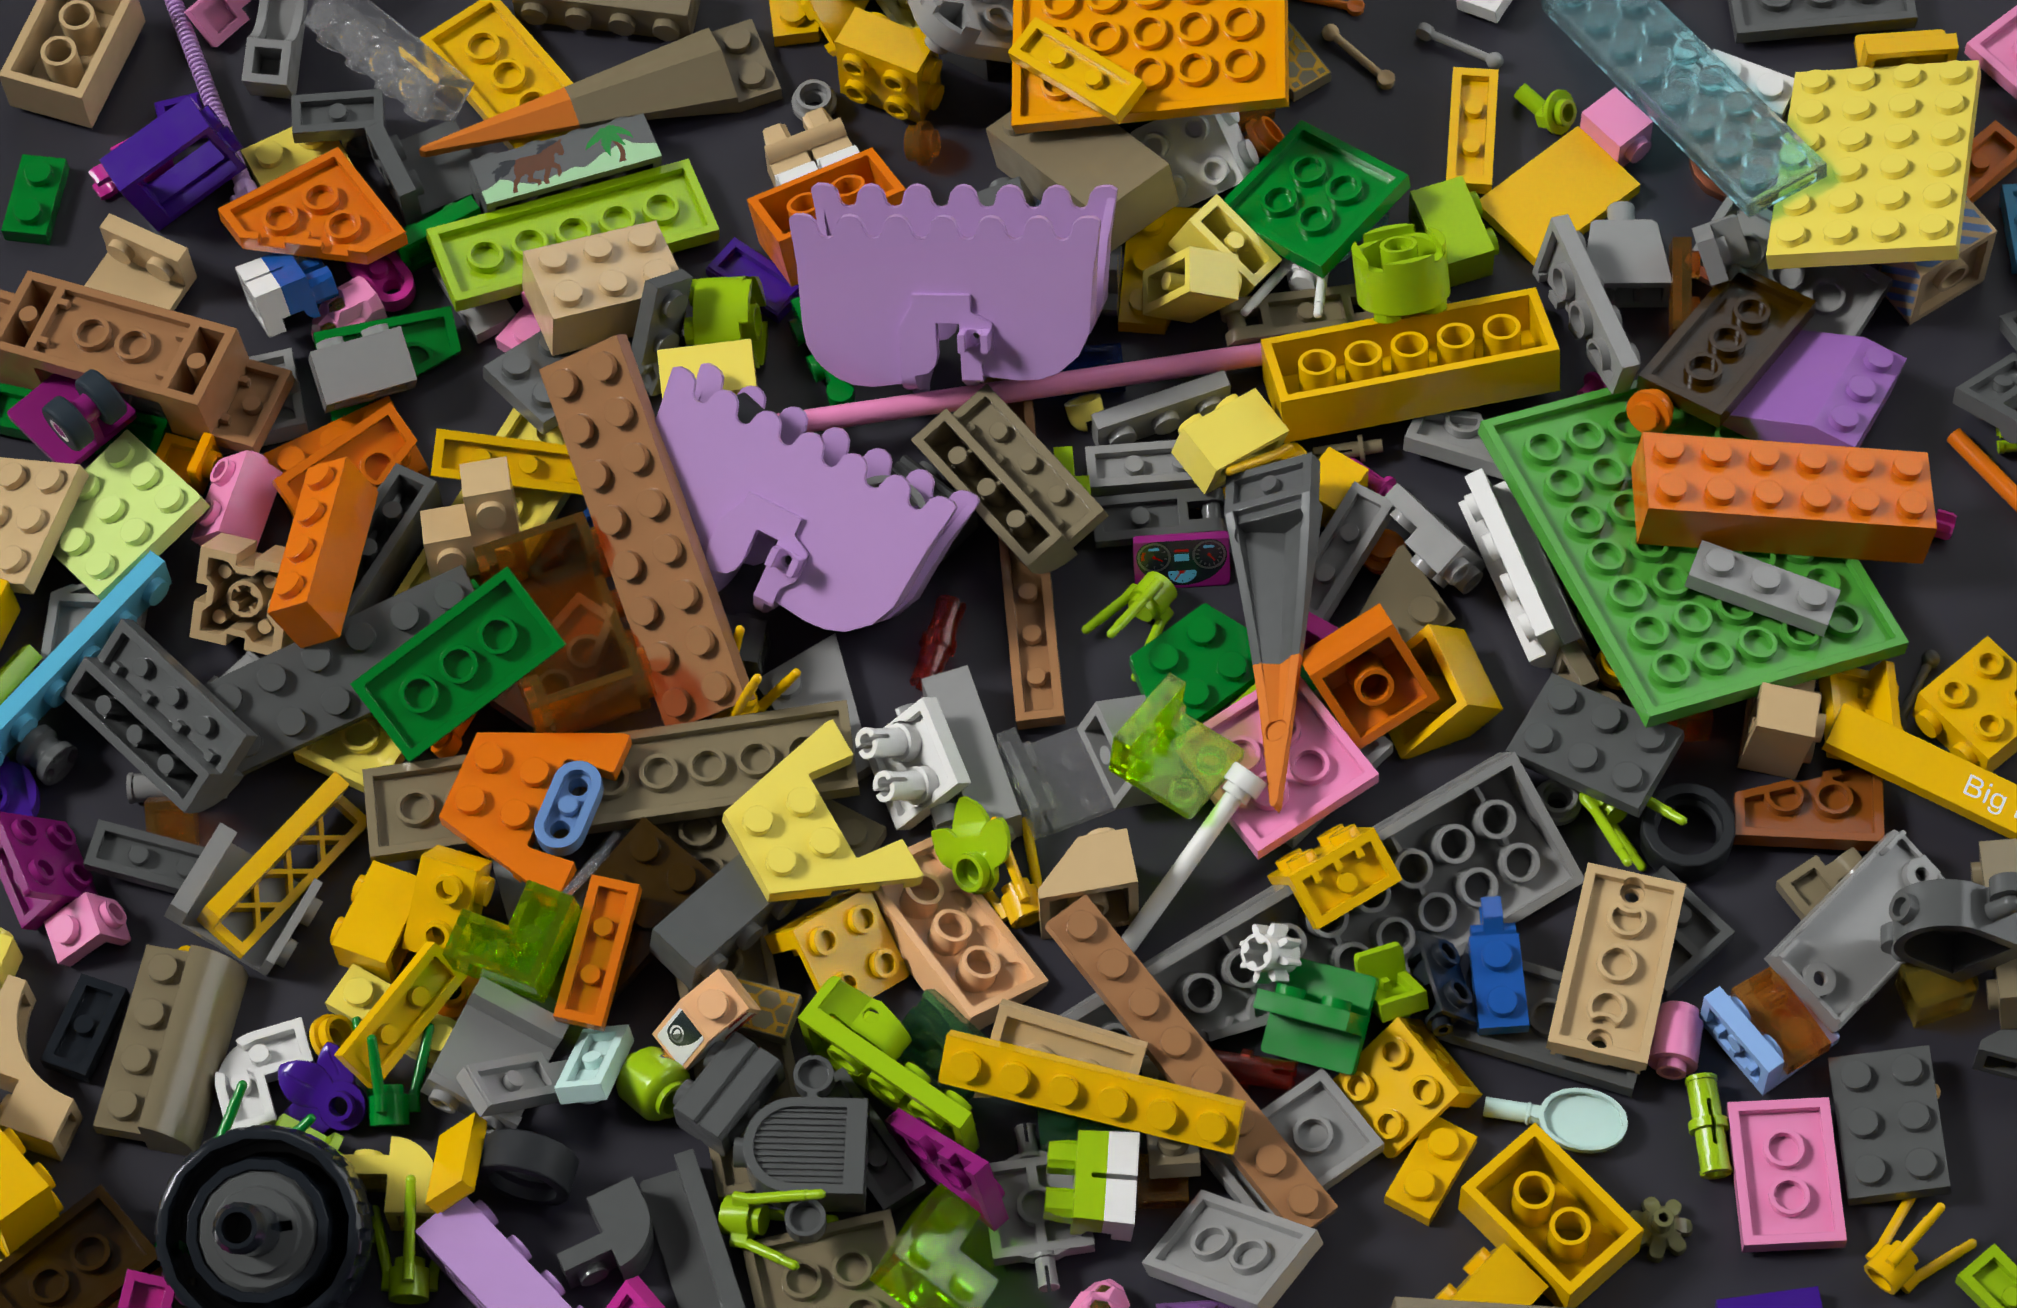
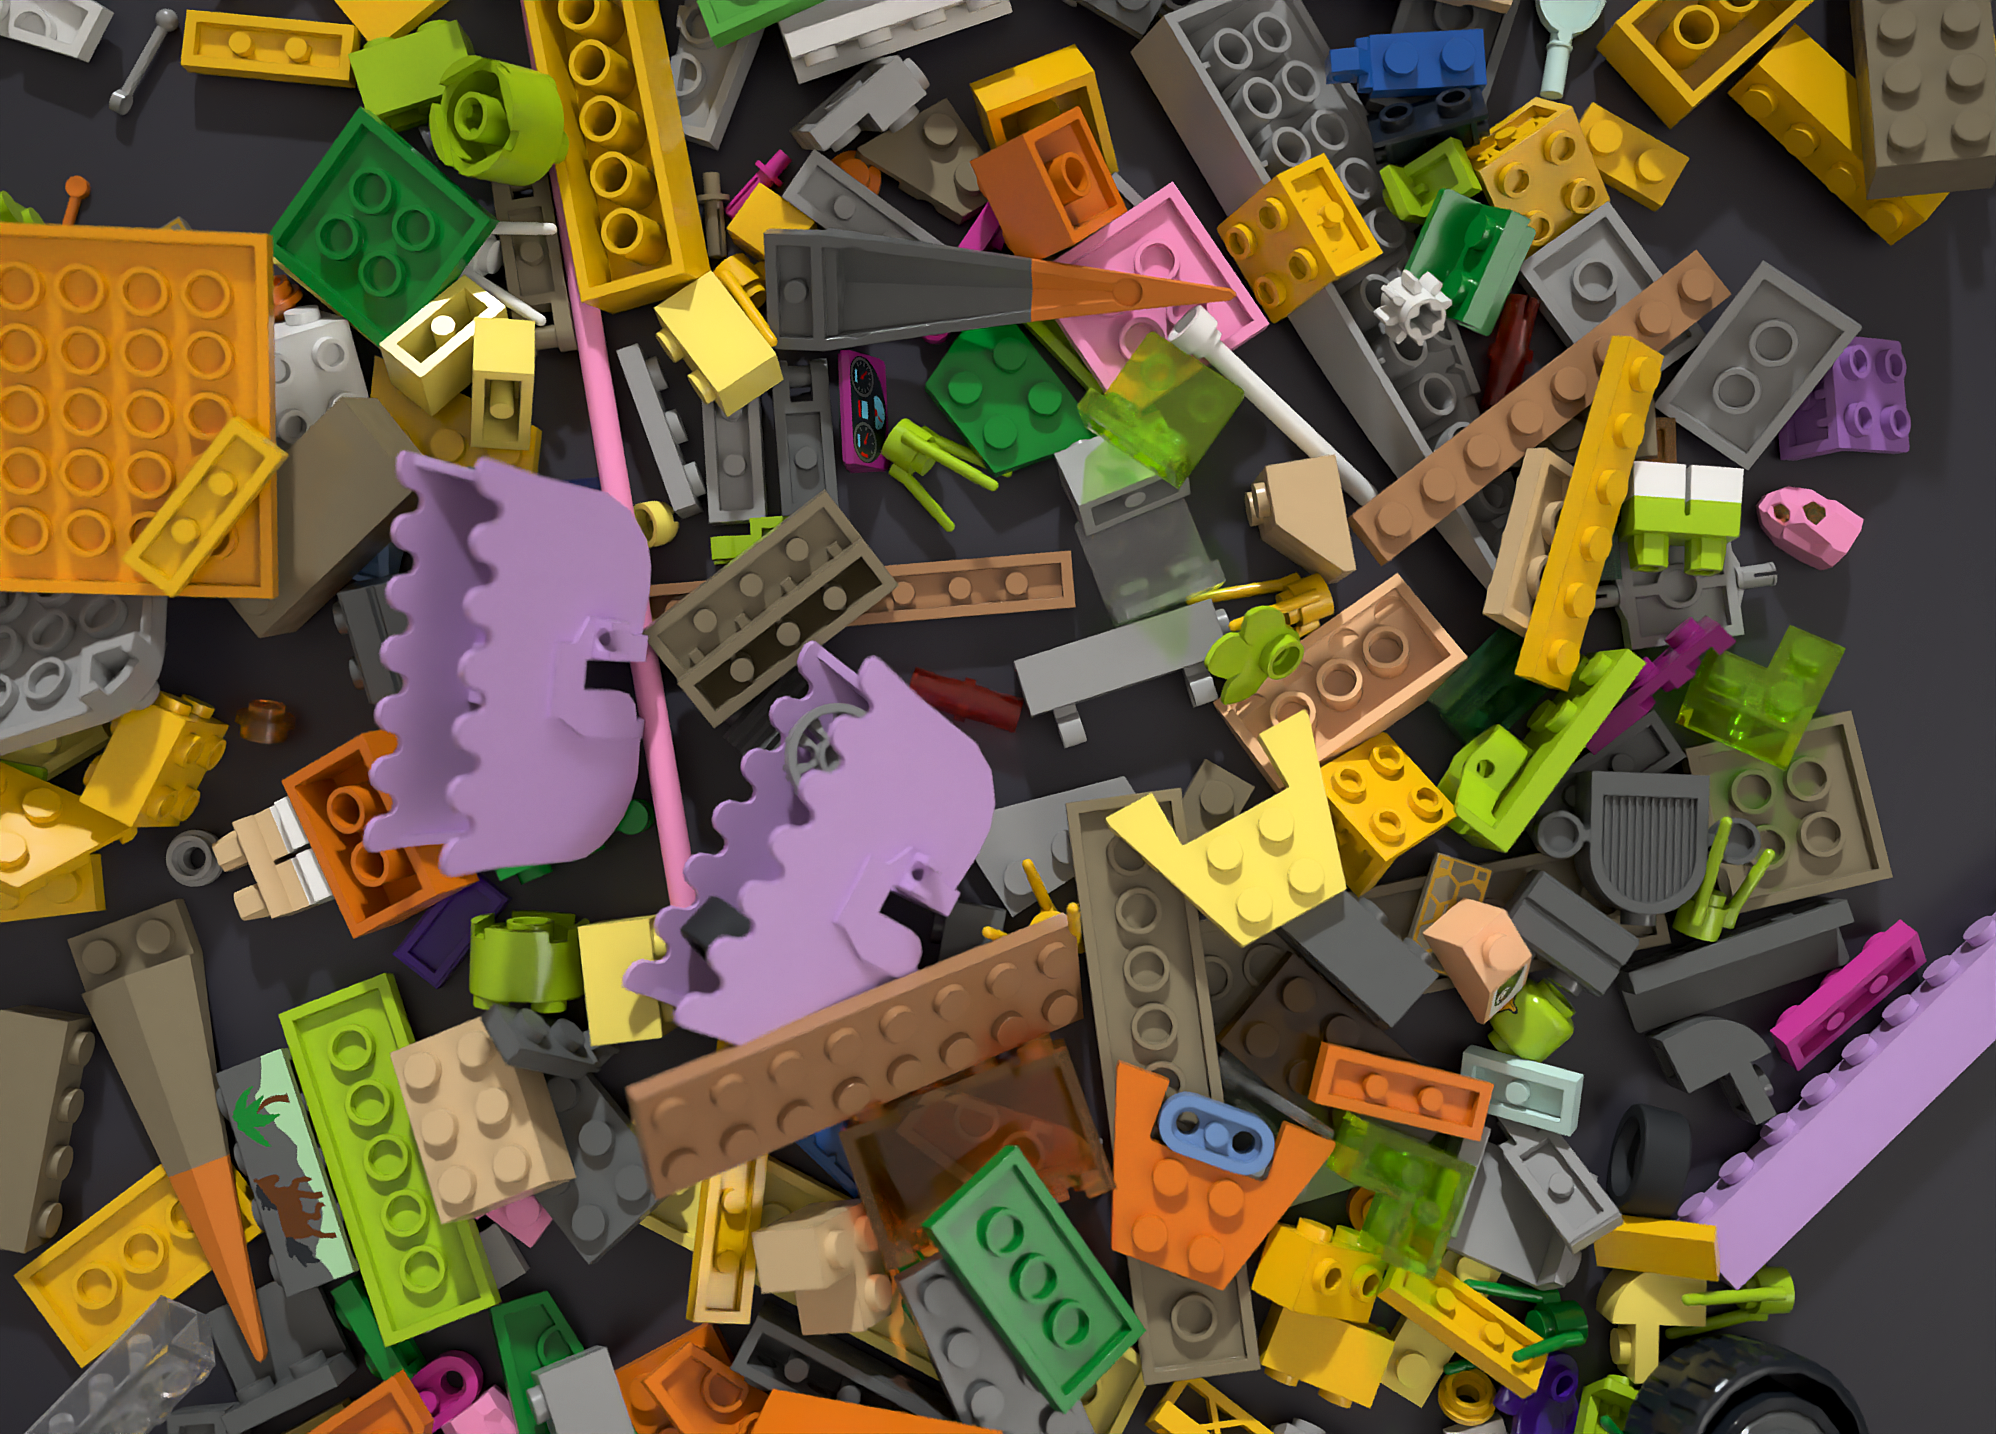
camera: 95 degrees left, 25 degrees up
(914, 762) = (1145, 723): white plate -> none
(1385, 78) = (186, 155): tan hinge -> none

